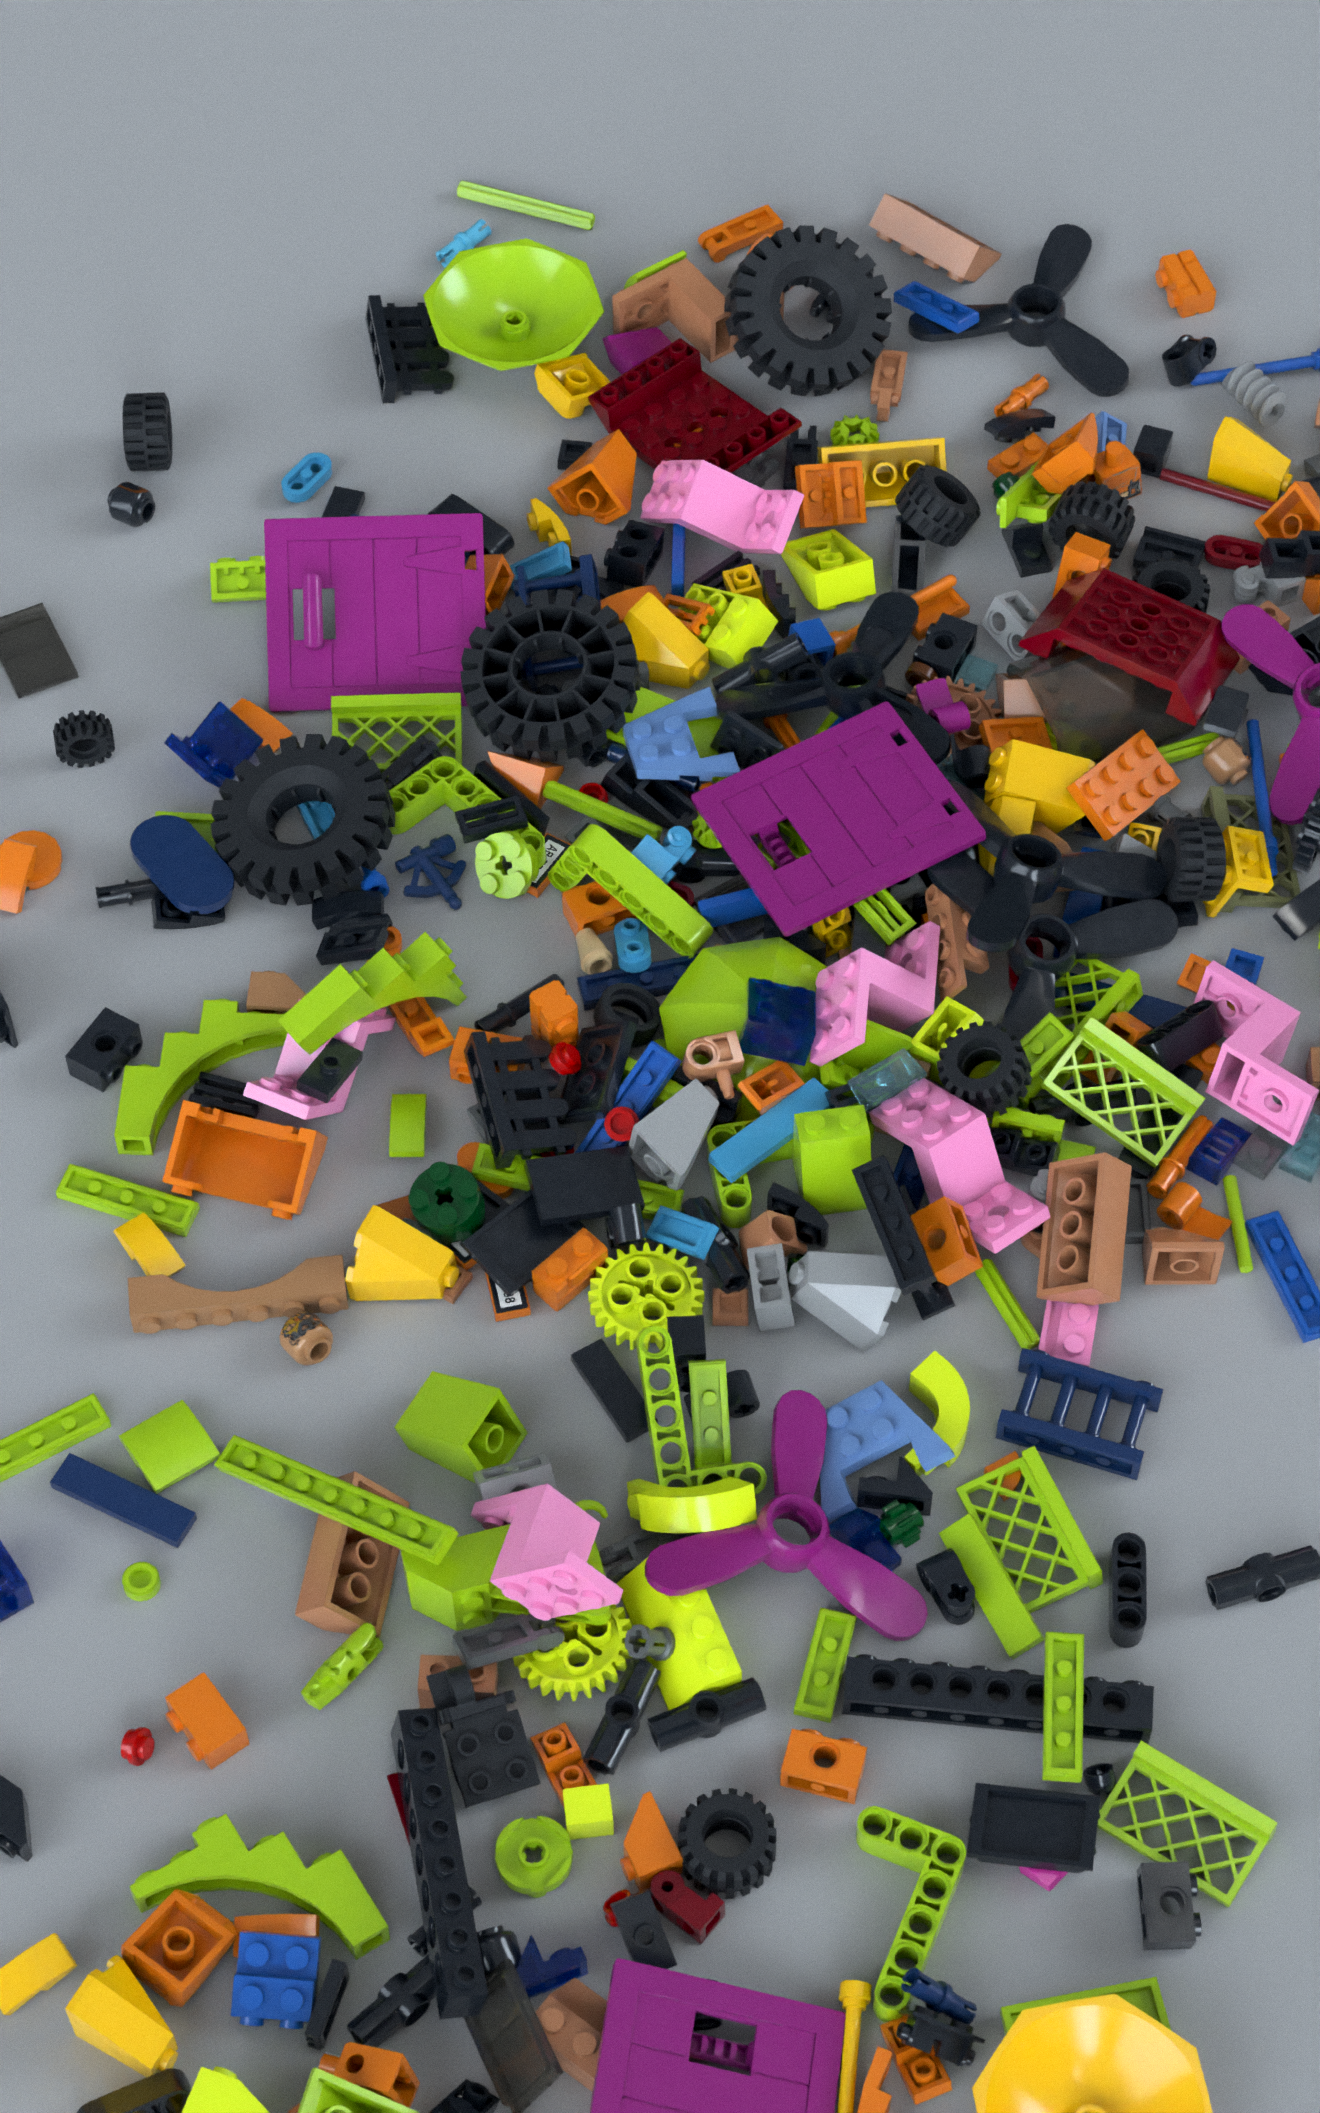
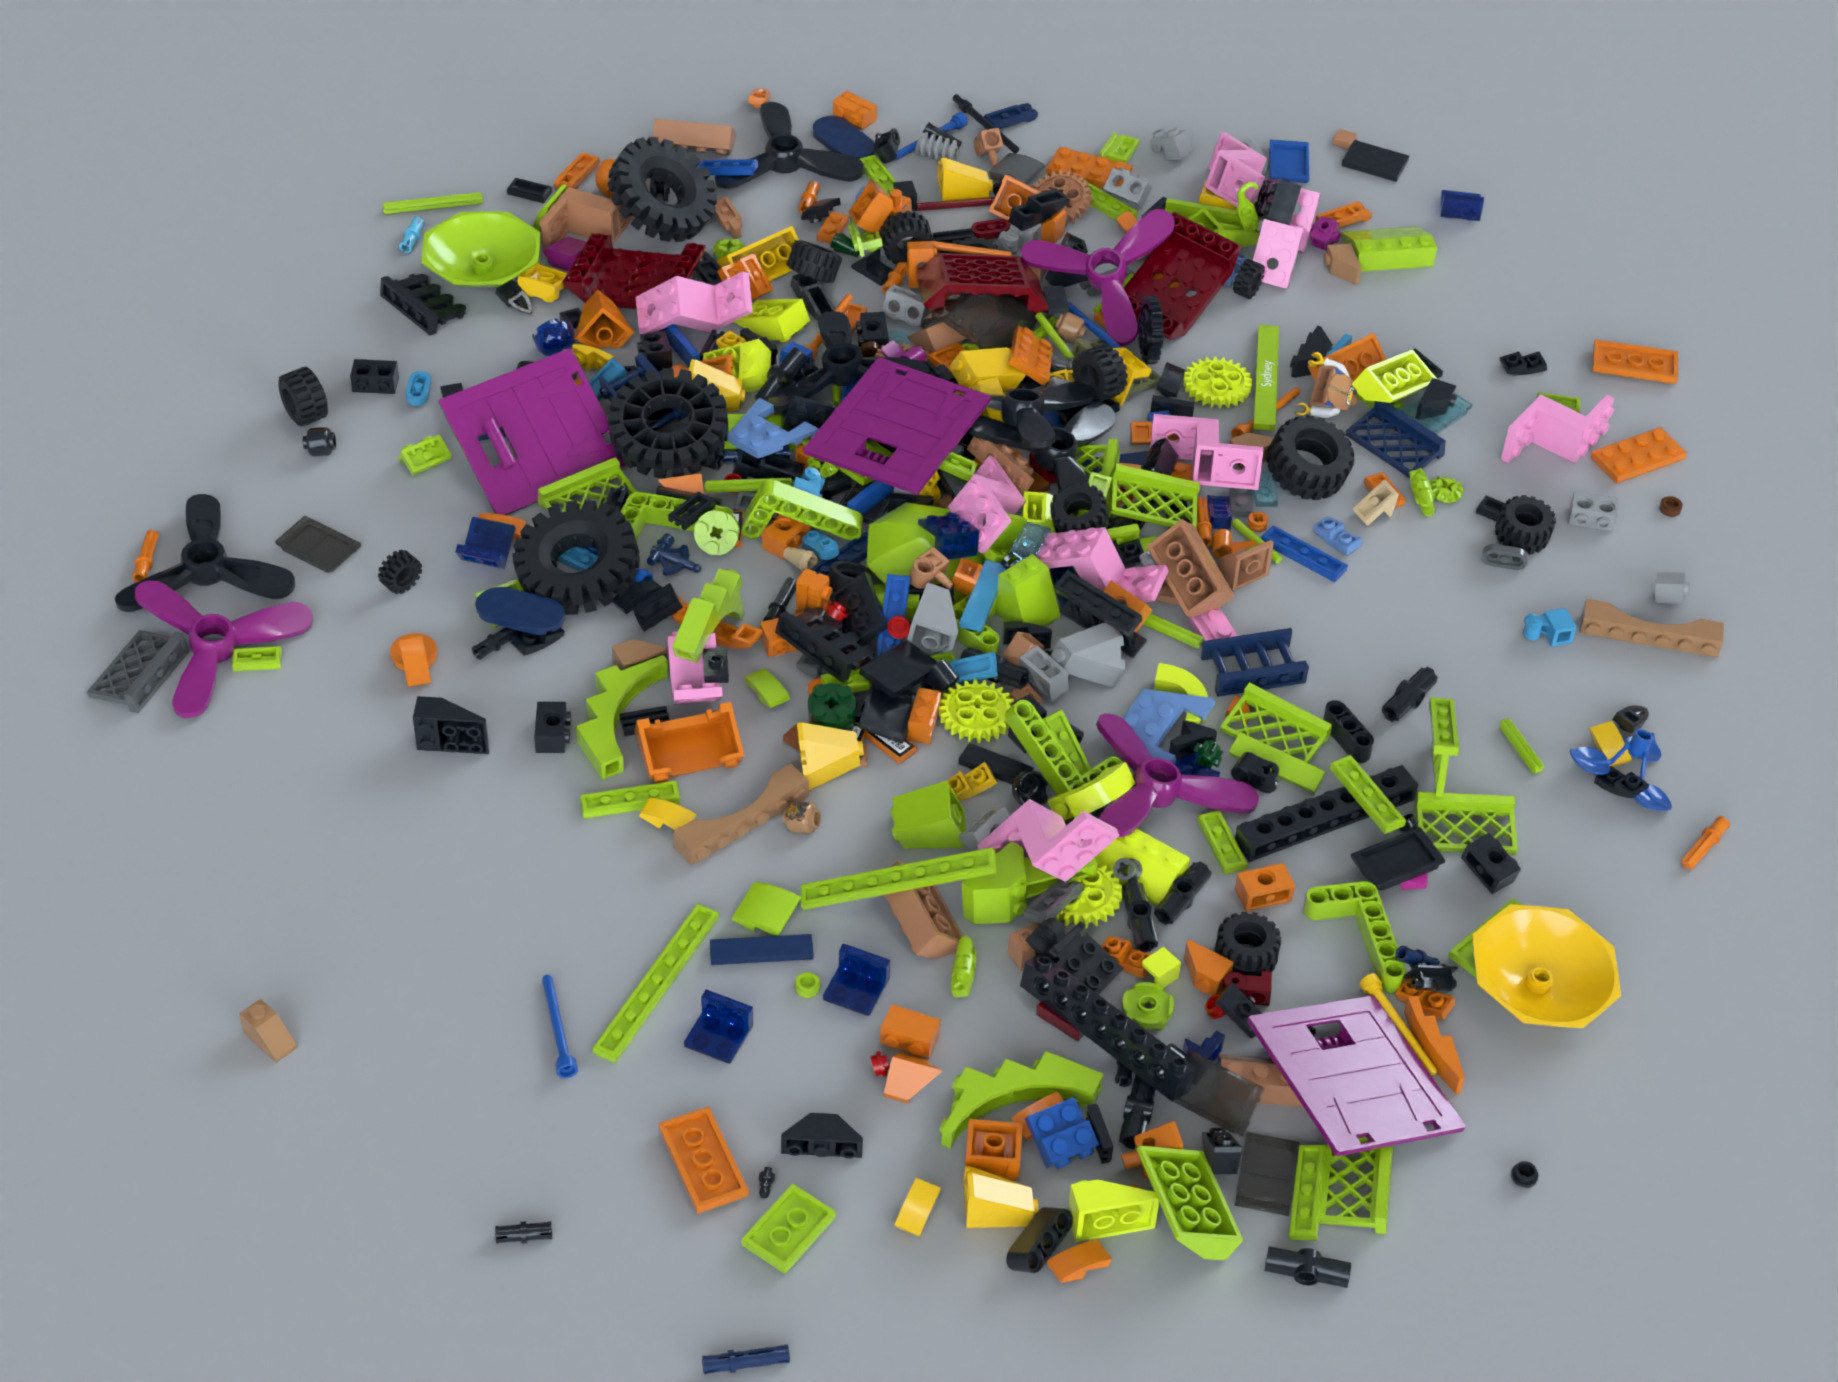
camera: 35 degrees left, 10 degrees down
(160, 1779) = (908, 1076): none -> slope
(195, 1615) = (858, 980): none -> clear blue bracket
(265, 437) = (374, 376): none -> black brick
(521, 478) = (554, 336): none -> clear blue cylinder
(522, 392) = (514, 296): none -> black plate
(555, 1400) = (973, 782): none -> yellow slope
(621, 1452) = (1030, 786): none -> black hair
(662, 234) = (529, 190): none -> black tile
(992, 986) = (1039, 484): none -> dark orange tile
(1039, 578) = (896, 276): none -> orange axle
(1071, 210) = (759, 97): none -> orange plate
(1139, 322) = (842, 137): none -> dark blue tile
(1145, 400) = (878, 173): none -> lime tile
(1158, 579) = (967, 249): none -> orange bar
(1193, 769) = (1054, 336): none -> lime bar
(1218, 1680) = (1444, 738): none -> lime fence
(1262, 1203) = (1262, 522): none -> orange bush
(1276, 957) = (1175, 406): none -> black tile
(1277, 374) = (932, 129): none -> black pin

